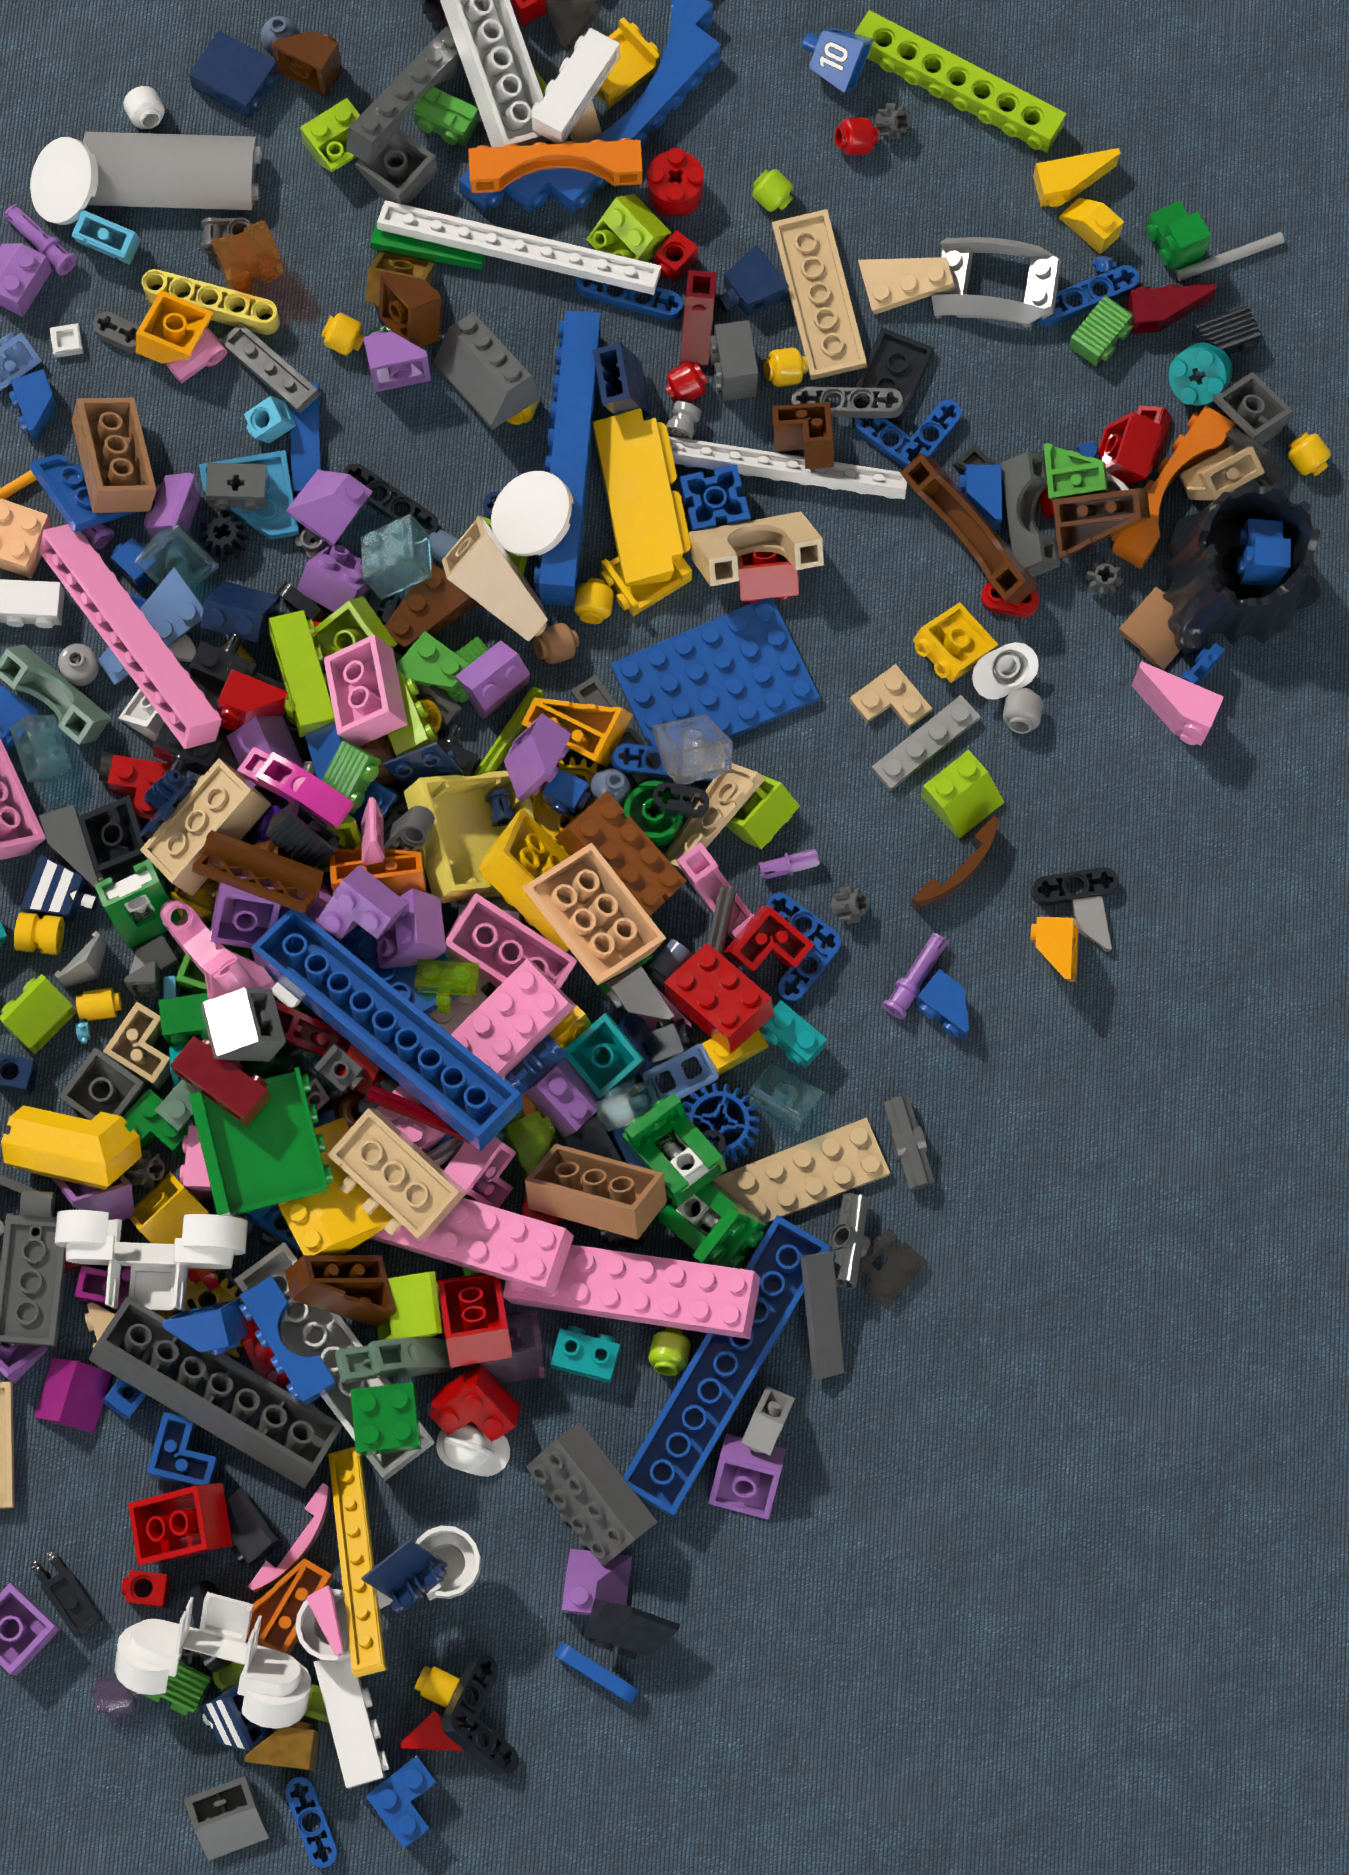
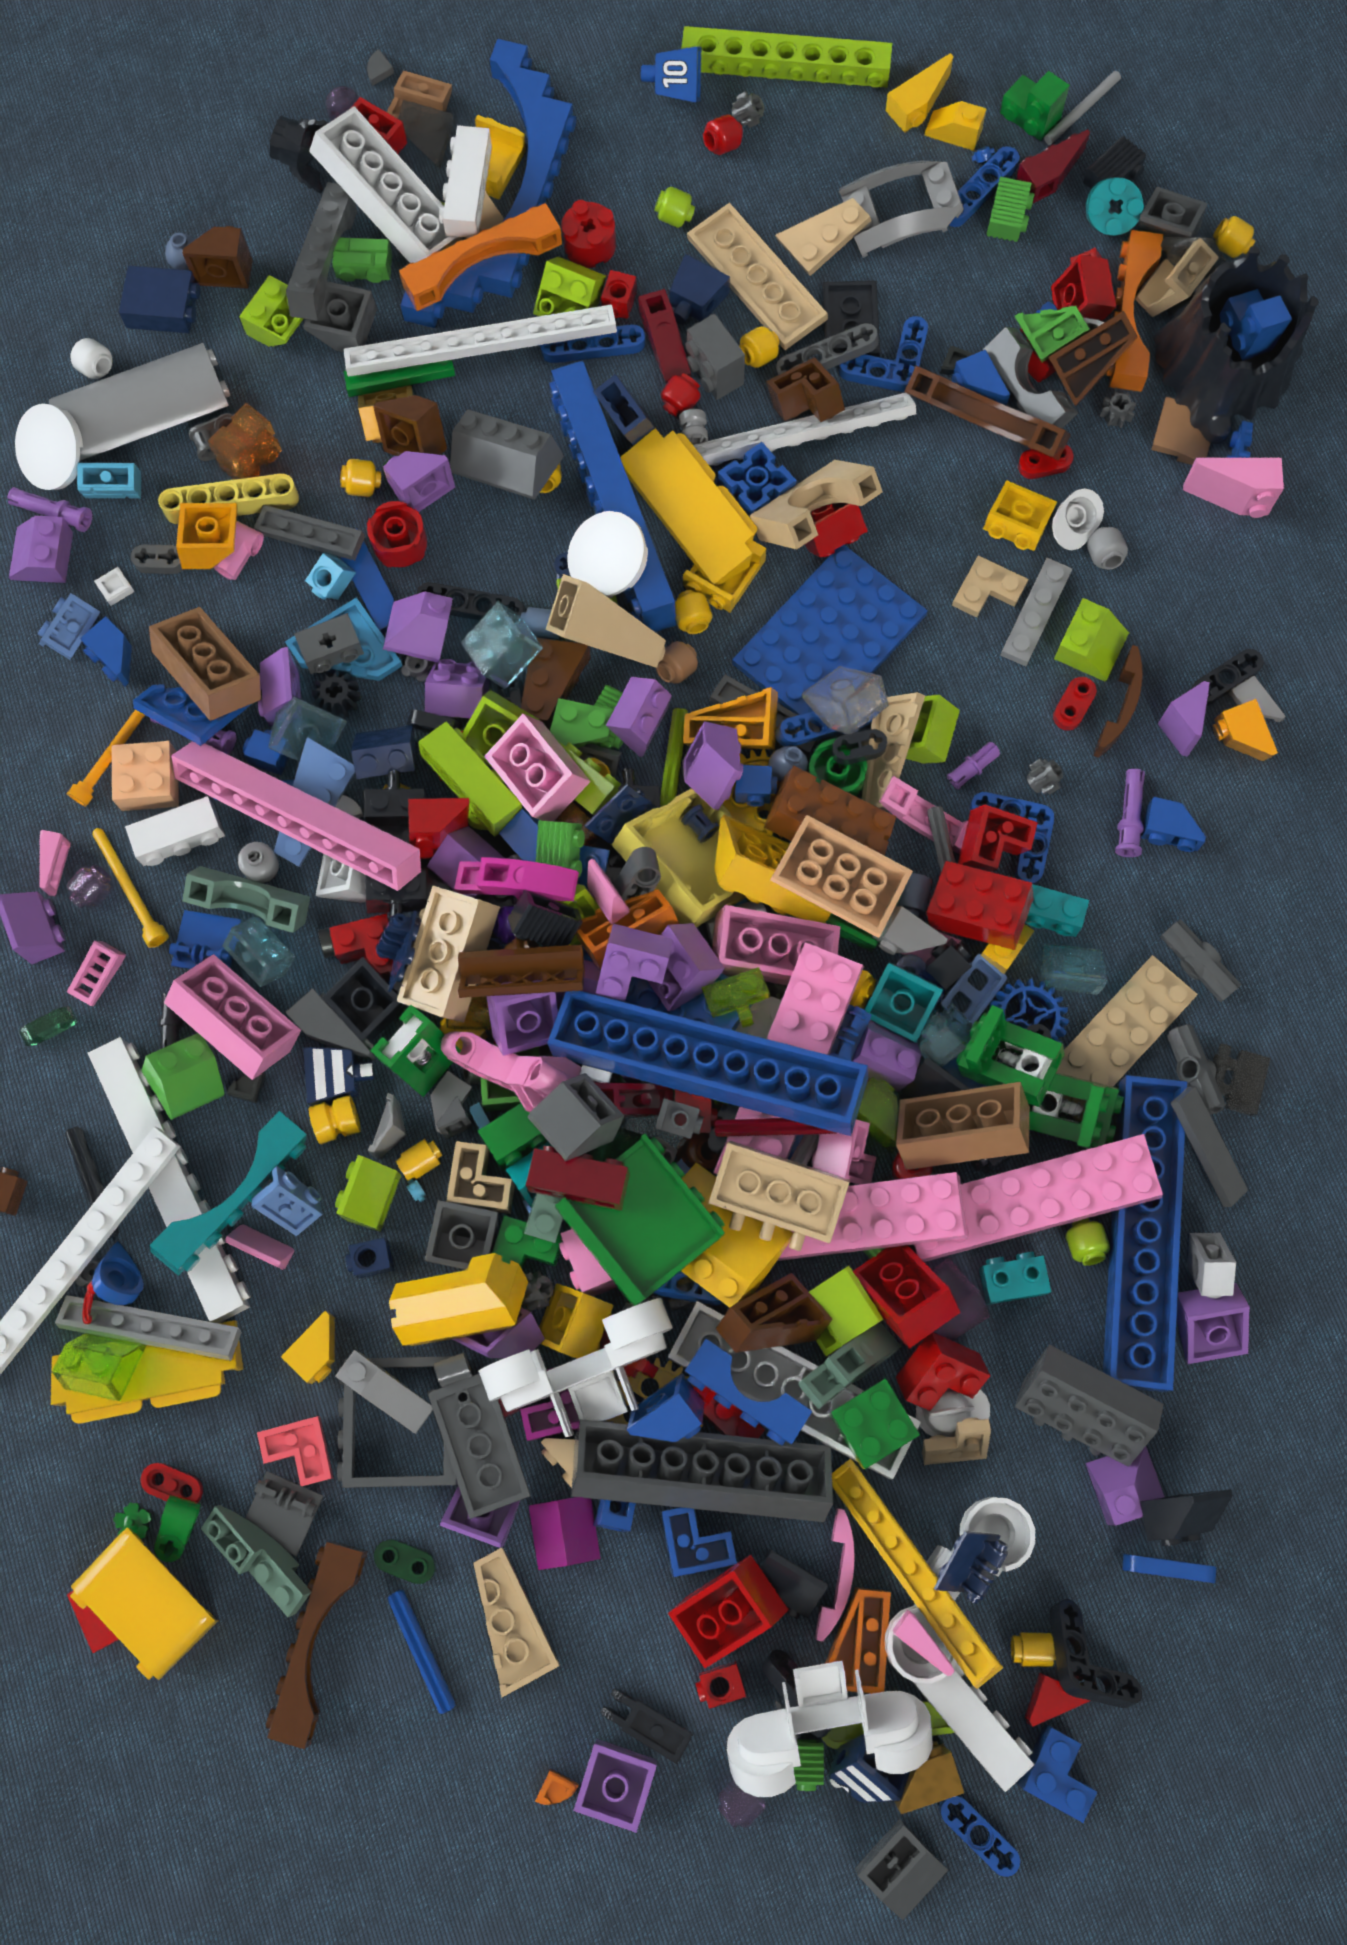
camera: 20 degrees left, 0 degrees up
(336, 403) = (397, 534): none -> red brick
(465, 1480) = (968, 1444): none -> tan plate
(917, 846) = (1076, 702): none -> red plate
(1008, 905) = (1185, 718): none -> medium lavender slope

